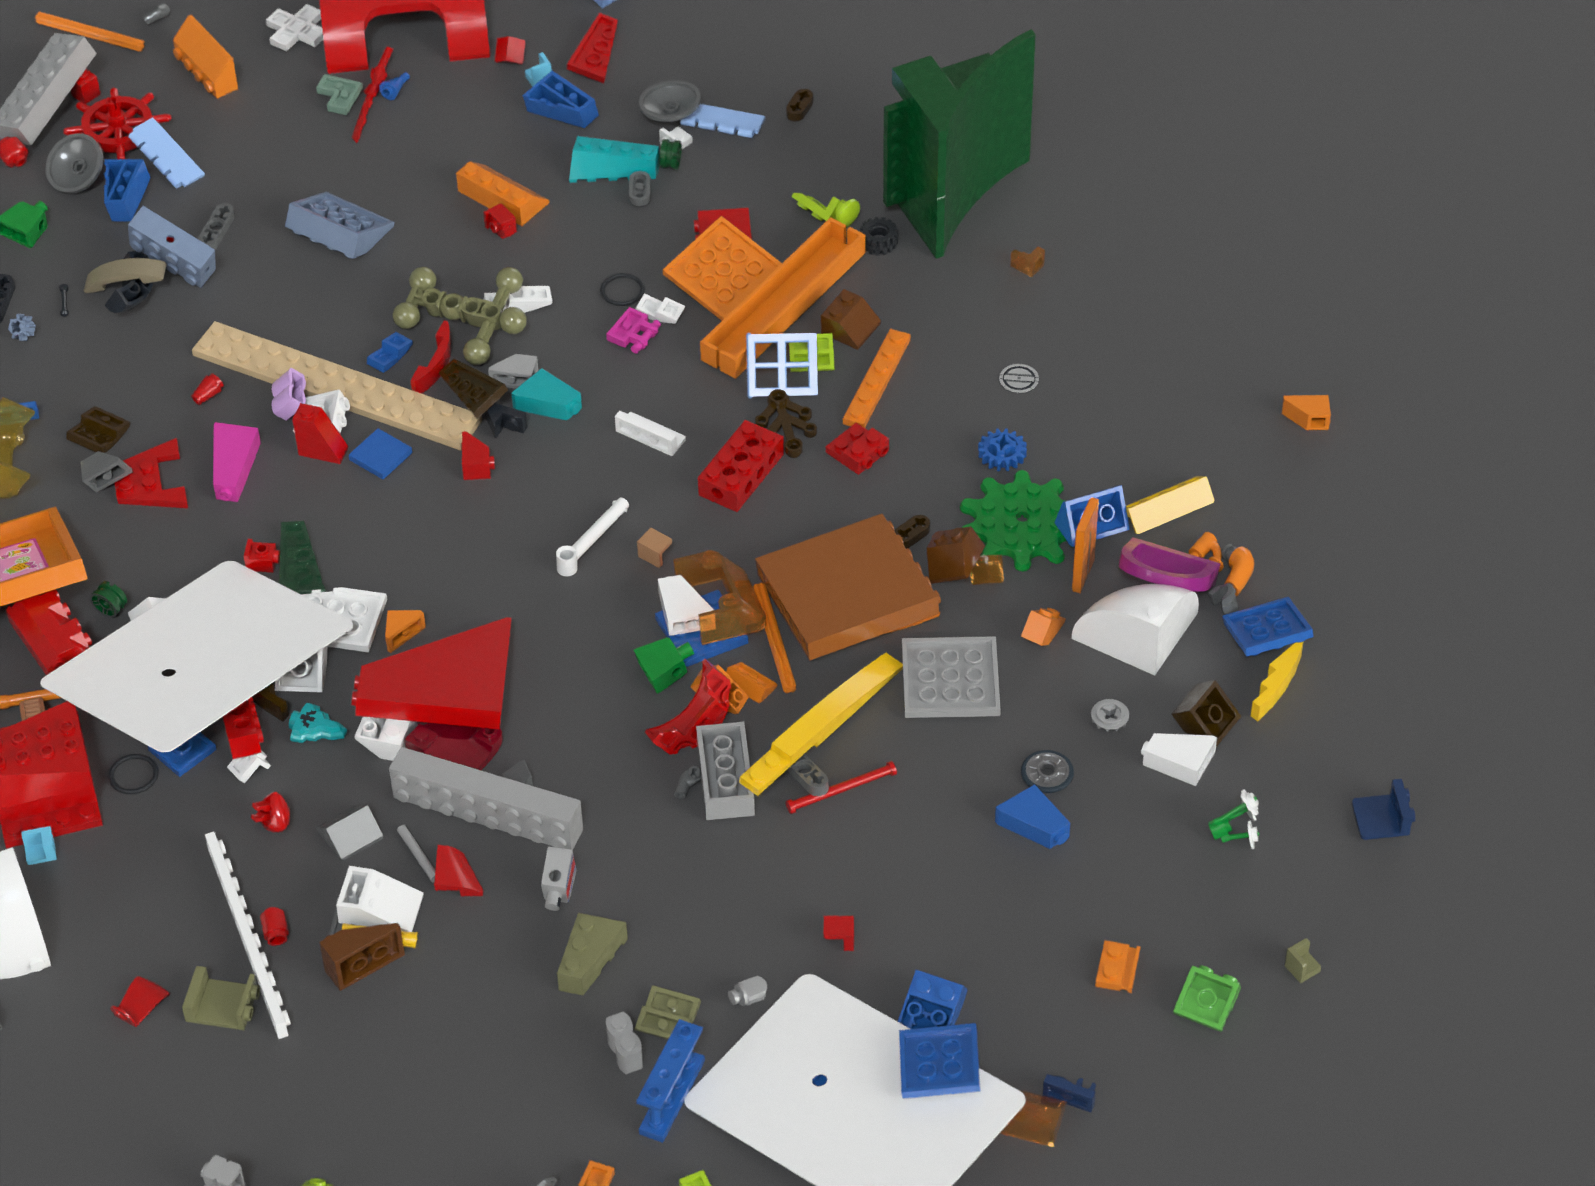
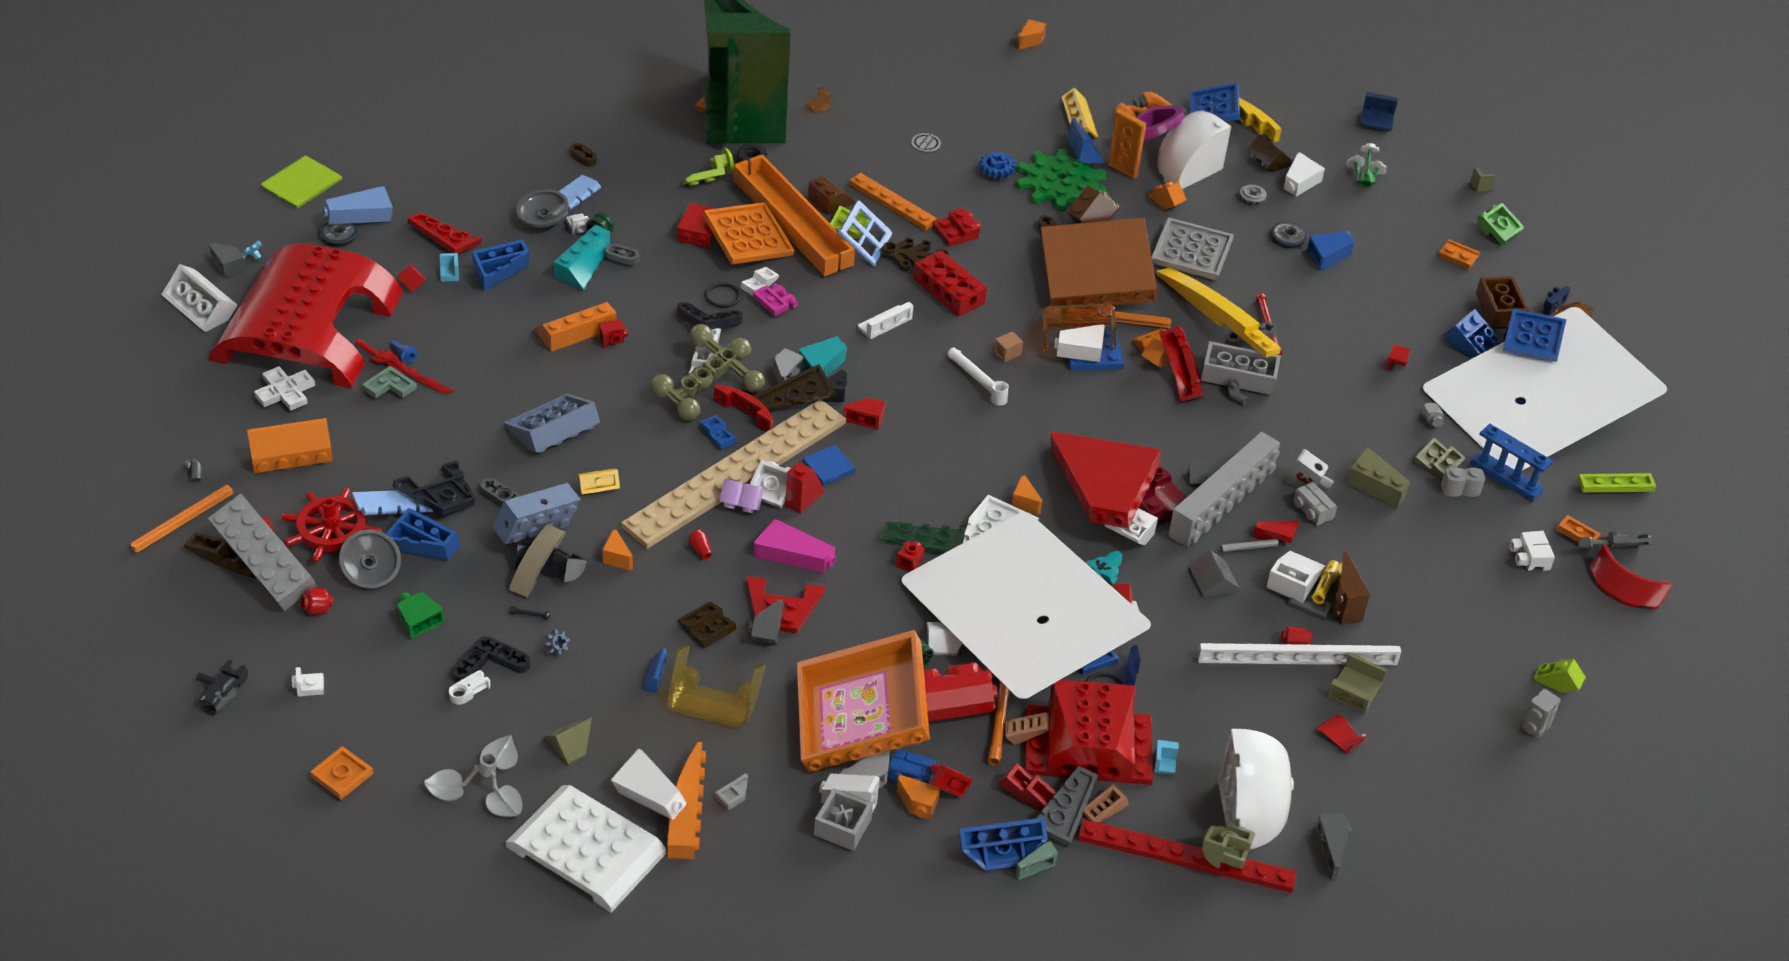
camera: 75 degrees left, 5 degrees down
(169, 330) = (617, 553): none -> orange slope
(171, 782) = (1132, 666): none -> clear blue slope
(195, 187) = (440, 496): none -> black wing
(265, 285) = (599, 481): none -> yellow plate
(272, 812) = (1189, 609): red piece -> none
(513, 898) = (1315, 503): none -> light grey brick
(529, 1141) = (1533, 550): none -> white hips
(555, 284) = (713, 321): none -> black beam
(663, 662) = (1125, 372): green torso -> none
(1020, 1025) = (1499, 298): none -> reddish brown brick

